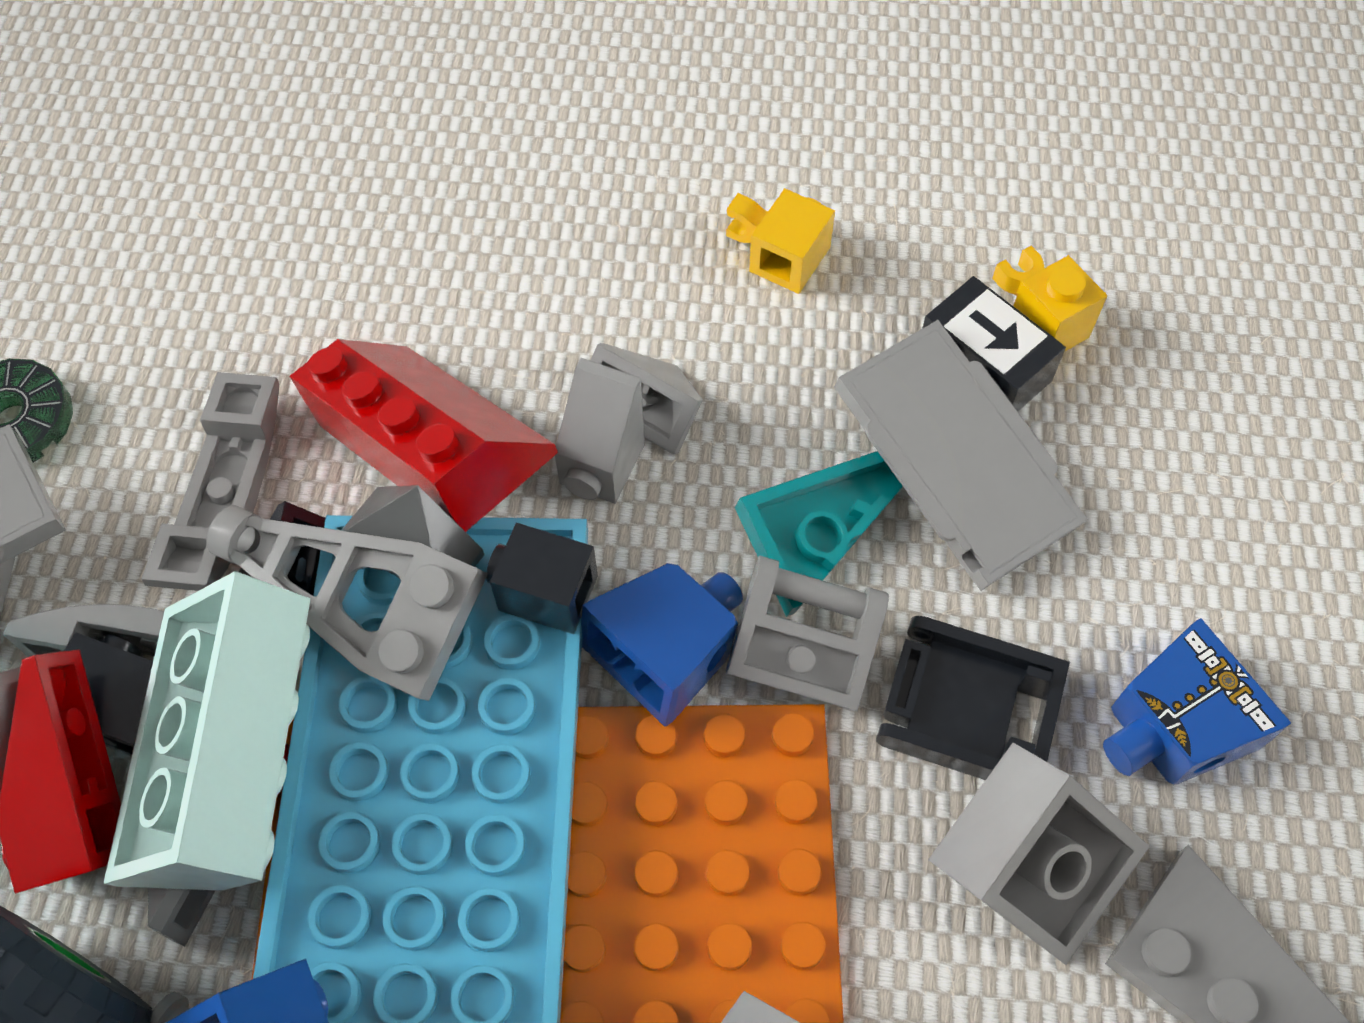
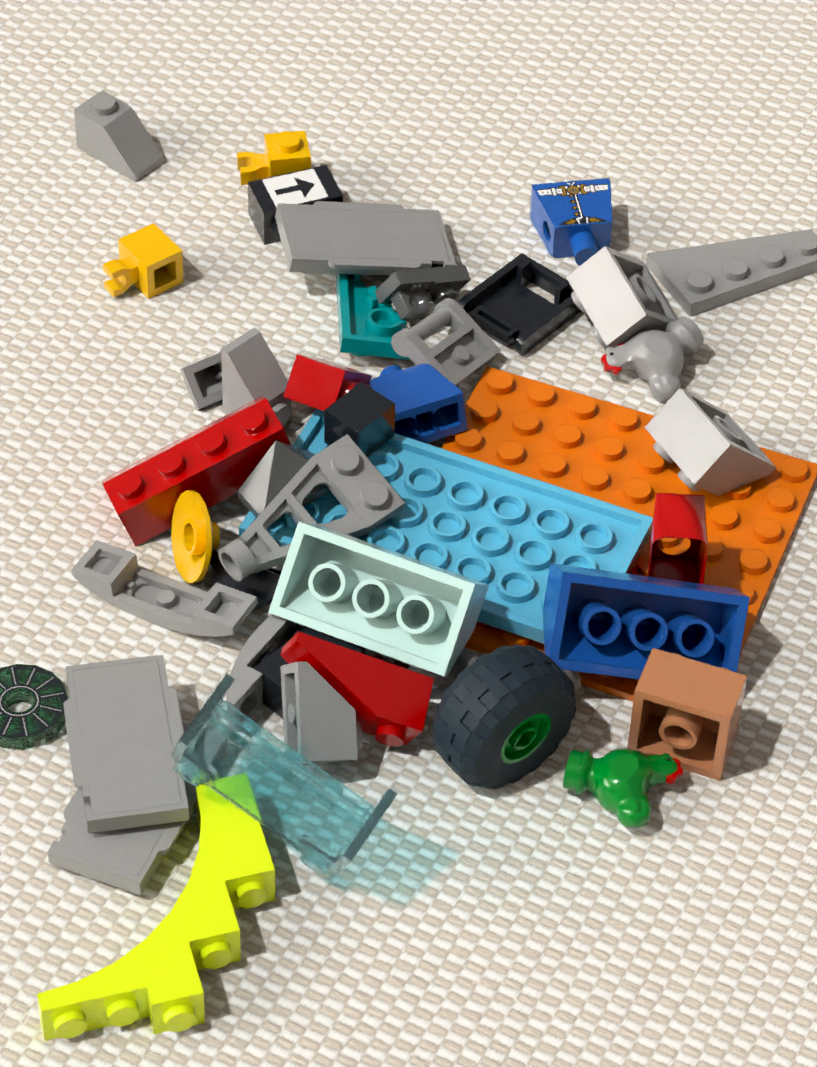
camera: 70 degrees left, 15 degrees down
(295, 472) = (193, 536): none -> yellow dish
(629, 513) = (321, 382): none -> red brick
(877, 543) = (414, 288): none -> dark grey hinge
(955, 947) = (656, 355): none -> light grey animal
(988, 122) = (116, 136): none -> light grey slope

